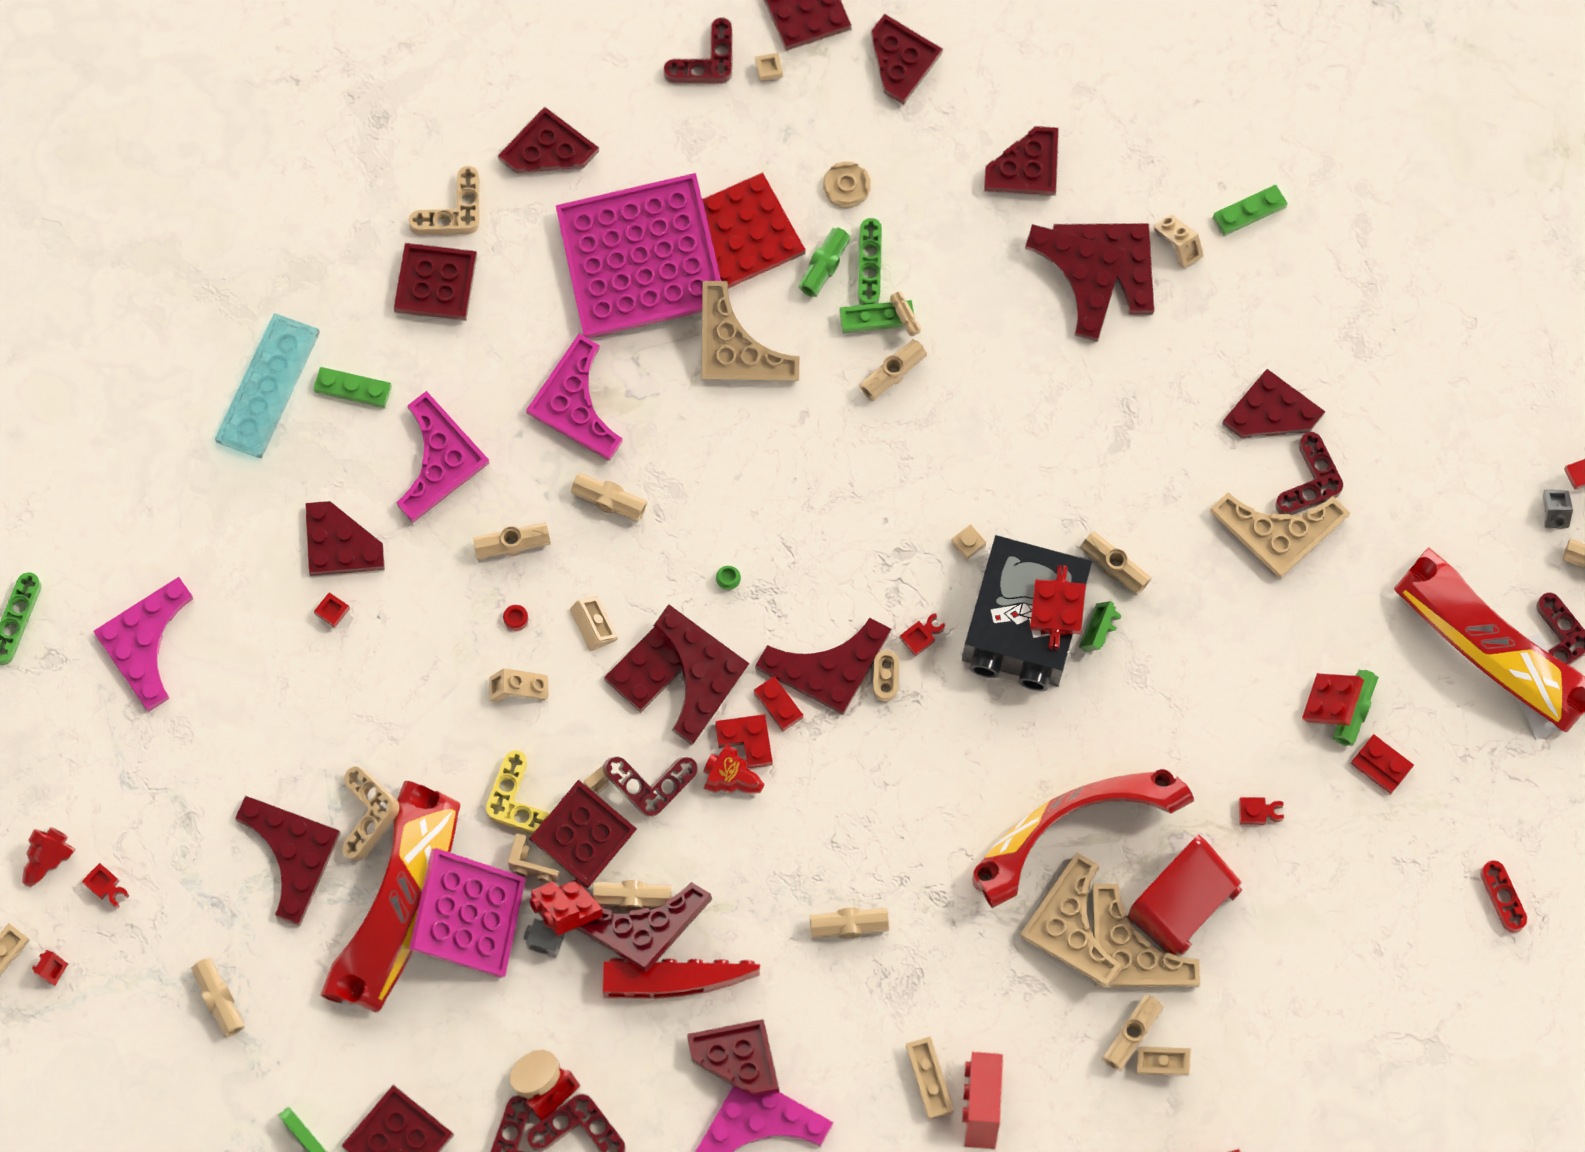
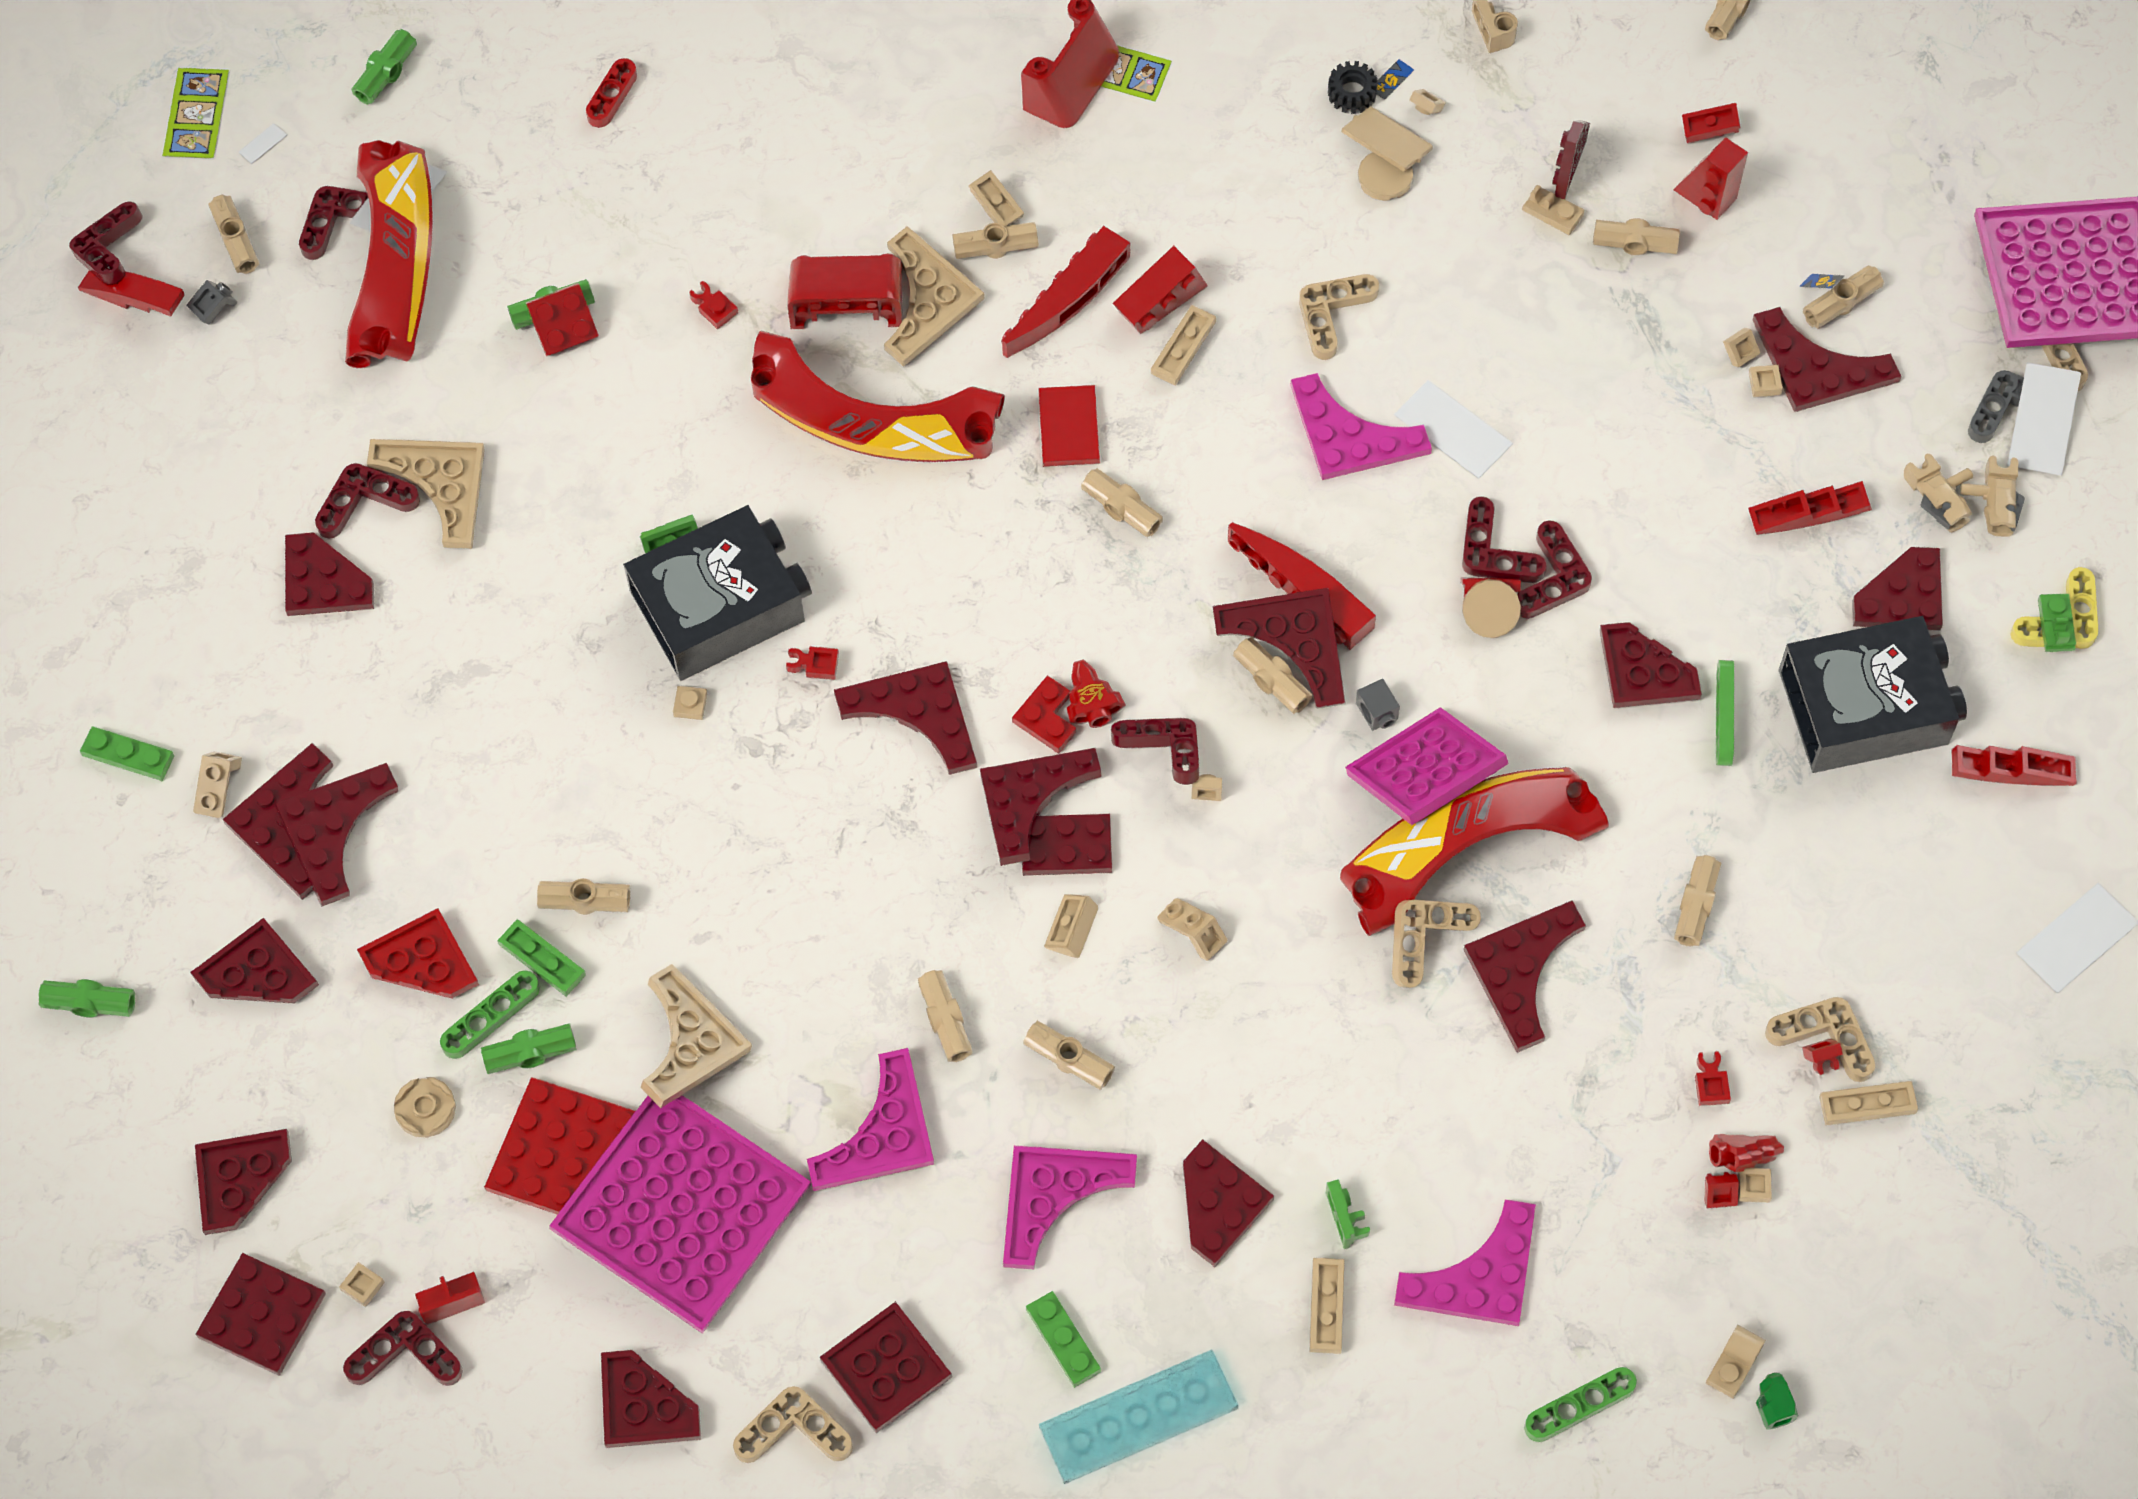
camera: 130 degrees left, 5 degrees down
(18, 842) = (1755, 1185): none -> tan plate
(39, 818) = (1721, 1190): none -> red tile
(66, 993) = (1826, 1023): none -> tan beam
(216, 538) = (1327, 1305): none -> tan plate
(265, 601) = (1339, 1202): none -> bright green plate
(331, 609) = (1286, 1142): red plate -> none
(511, 807) = (1298, 835): light yellow beam -> none
(515, 617) = (1132, 991): red tile -> none
(520, 852) = (1331, 789): tan bracket -> none
(564, 906) = (1338, 705): red plate -> none
(583, 834) = (1264, 754): dark red plate -> none
(713, 103) = (449, 1298): none -> red panel
(728, 577) = (918, 856): bright green plate -> none
(738, 1056) = (1316, 482): dark red plate -> none
(778, 703) = (990, 719): red plate -> none
(886, 677) = (879, 658): tan plate -> none
(905, 313) = (519, 928): tan axle -> none
(942, 948) = (1069, 425): none -> red tile
(944, 254) = (421, 958): none -> red plate
(1045, 1048) = (1070, 290): none -> red slope
(1058, 607) = (695, 549): red plate -> none
(1063, 925) = (960, 353): tan plate -> none
(1097, 66) = (86, 998): none -> bright green piece
(1104, 552) = (596, 586): tan piece -> none
(1382, 764) = (581, 254): red plate -> none

